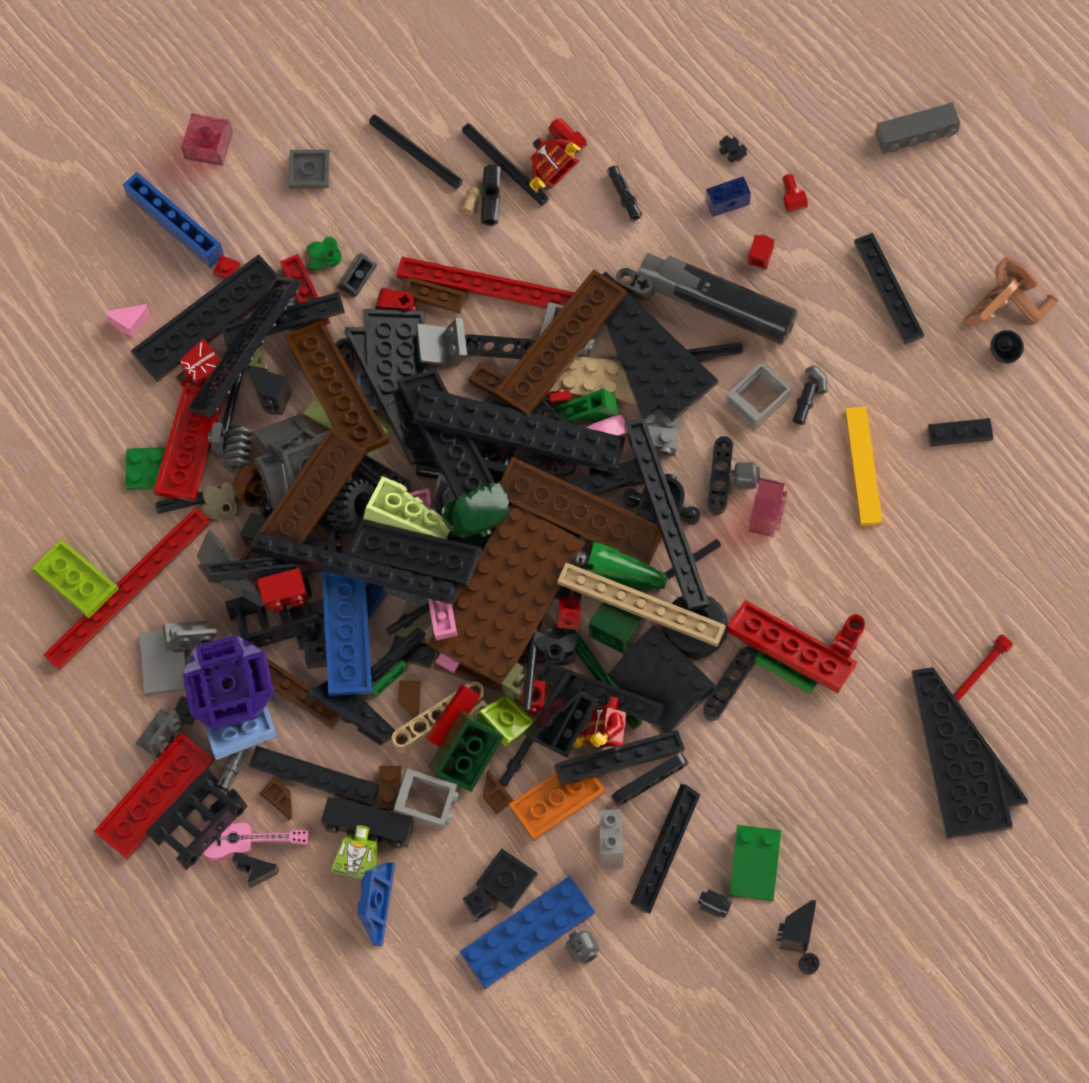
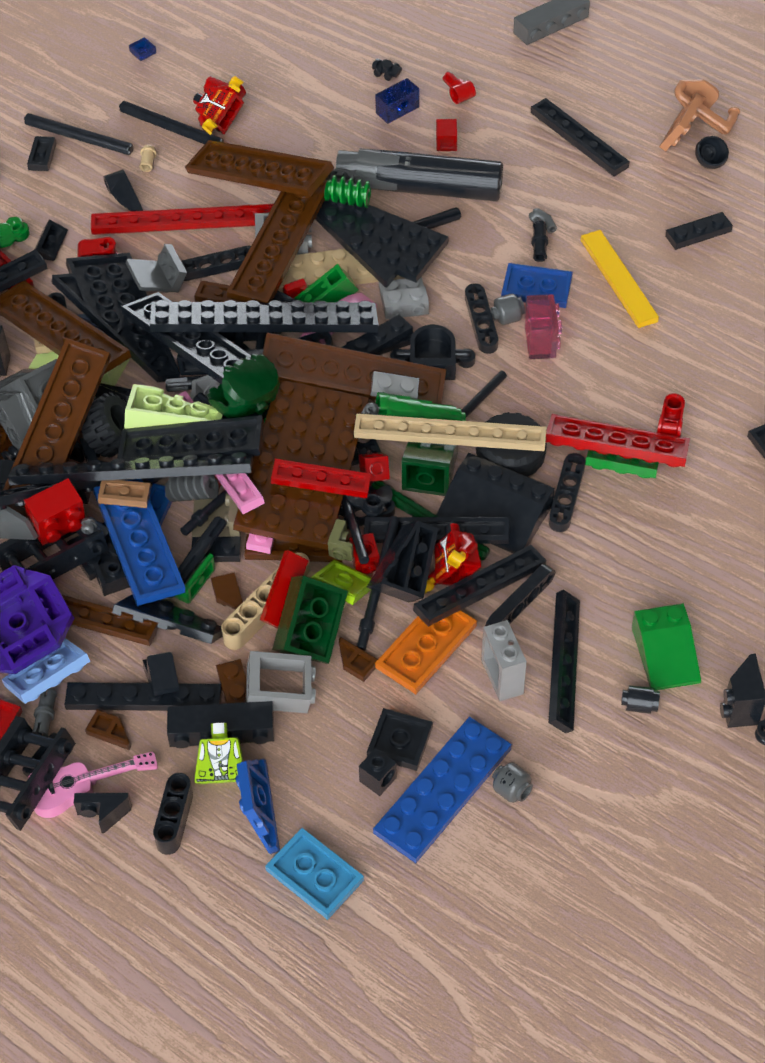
camera: 20 degrees left, 15 degrees down
(308, 879) = (175, 824): none -> black beam
(312, 606) = (90, 525): none -> dark grey arm
(331, 763) = (161, 673): none -> black slope
(345, 587) = (124, 493): none -> medium nougat plate
(375, 168) = (41, 153): none -> black plate
(402, 975) = (314, 873): none -> dark azure plate
(435, 295) = (138, 237): reddish brown plate -> none
(437, 236) = (122, 190): none -> black piece
(491, 185) = (165, 148): black piece -> none
(504, 60) = (142, 49): none -> clear blue plate
(514, 621) = (320, 478): none -> red plate
(566, 254) = (260, 168): none -> reddish brown plate
(612, 536) = (394, 384): none -> light grey plate
(627, 199) = (301, 125): black pin -> none
(638, 308) = (348, 191): none -> green piece
(666, 515) = (446, 353): black plate -> none
(744, 409) = (486, 258): light grey window -> none
(785, 452) = (533, 280): none -> blue tile

